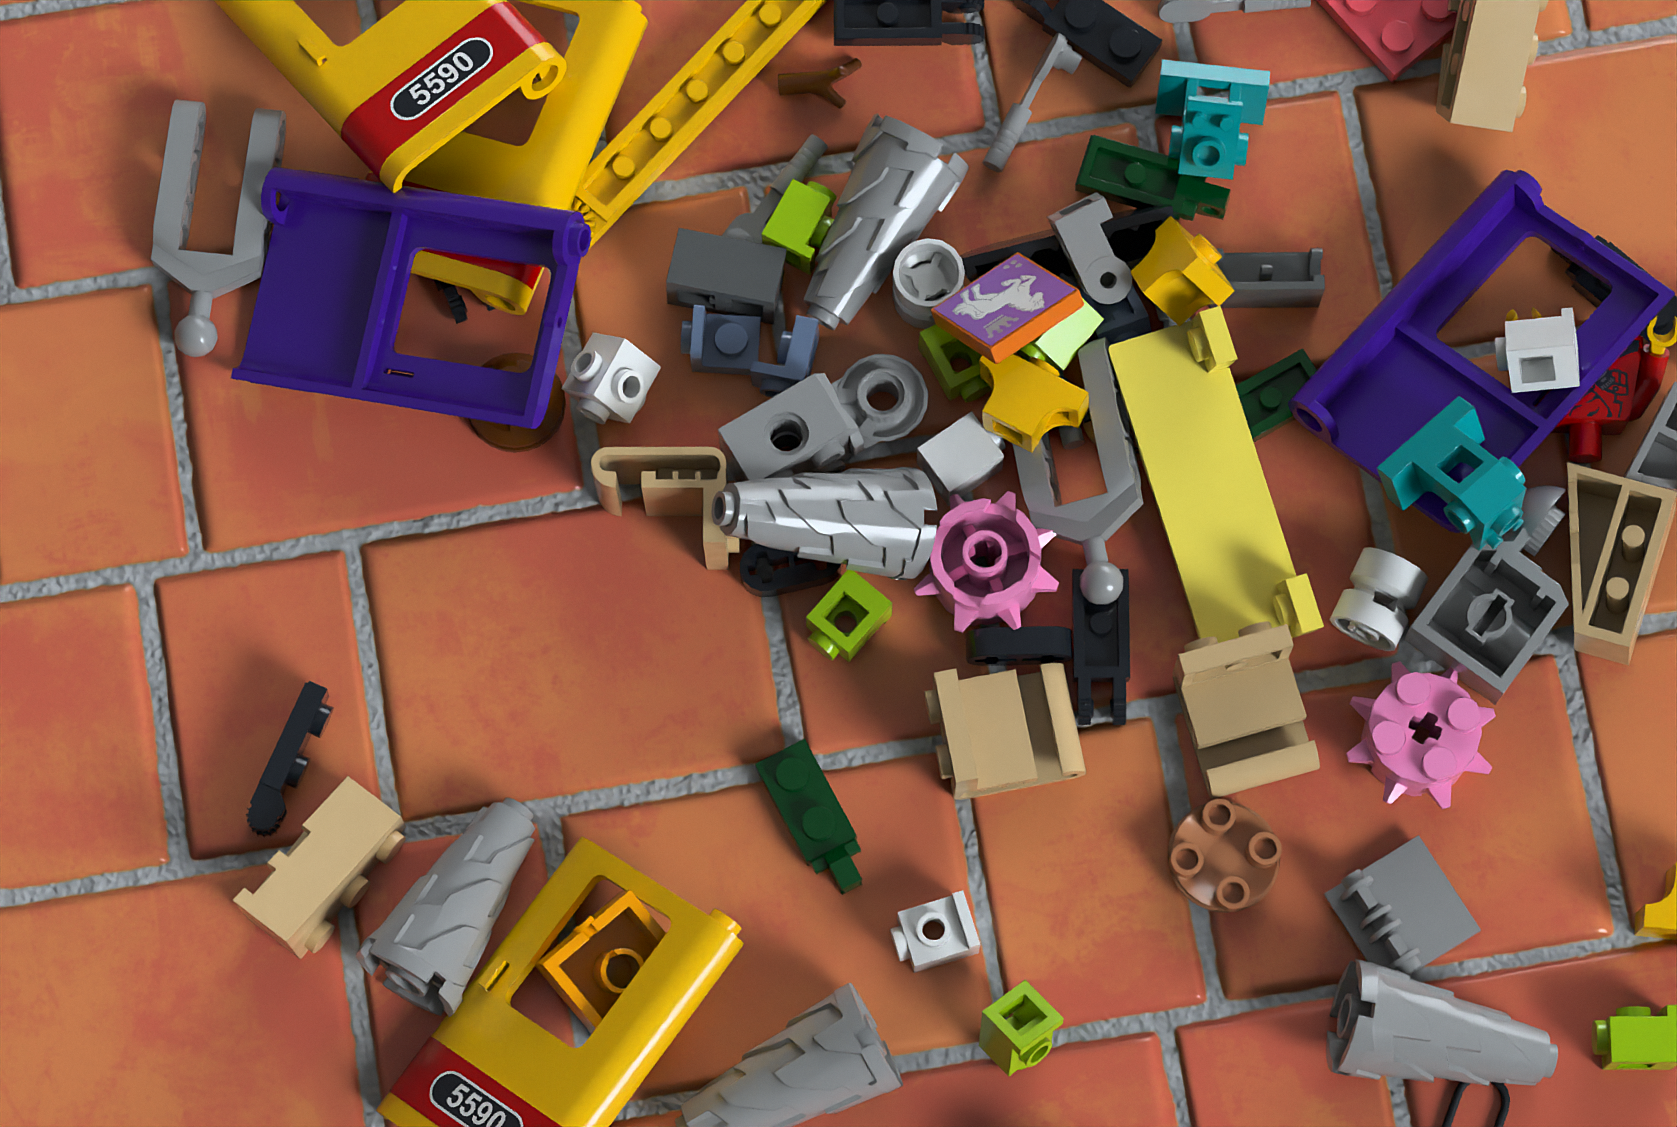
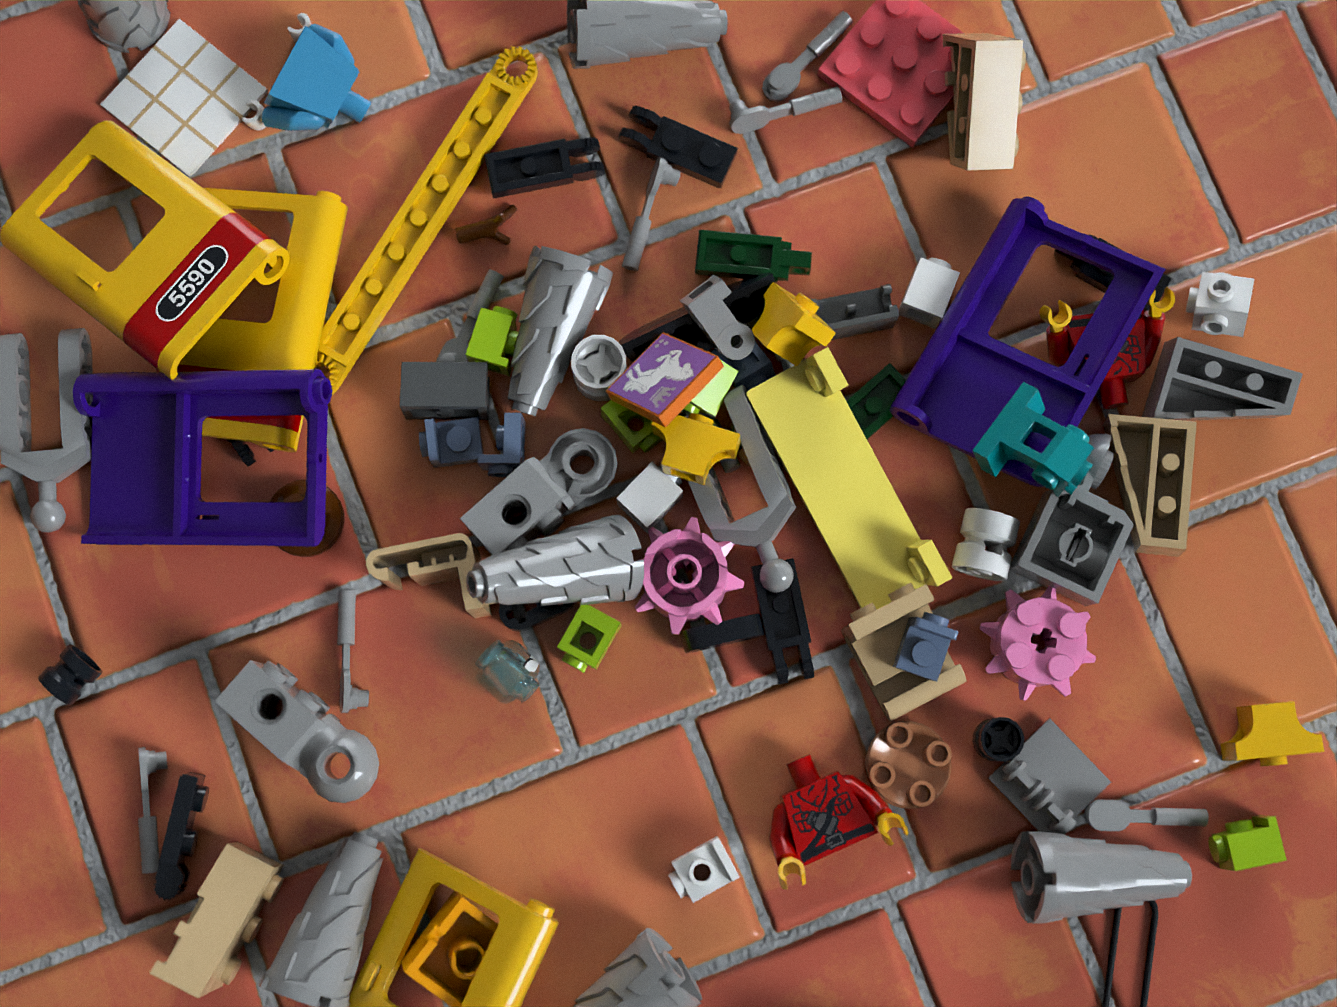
camera: 15 degrees left, 5 degrees up
(187, 536) = (70, 674): none -> black wheel
(262, 665) = (149, 763): none -> light grey piece
(467, 656) = (303, 731): none -> light grey brick
(529, 632) = (349, 696): none -> light grey piece
(610, 379) = (372, 489): white brick -> none
(737, 639) = (507, 671): none -> clear light blue head
(812, 813) = (591, 793): dark green hinge -> none
(1005, 730) = (725, 701): tan piece -> none
(1022, 1037) = (783, 936): lime brick -> none
(1103, 896) = (824, 817): none -> red torso
(1210, 126) = (788, 207): teal tile -> none
(1272, 705) = (924, 646): none -> sand blue bracket
(1352, 838) = (1005, 739): none -> black wheel
(1371, 267) = (929, 291): none -> white brick
(1478, 970) = (1116, 816): none -> light grey piece
(1540, 353) = (1076, 335): white brick -> none

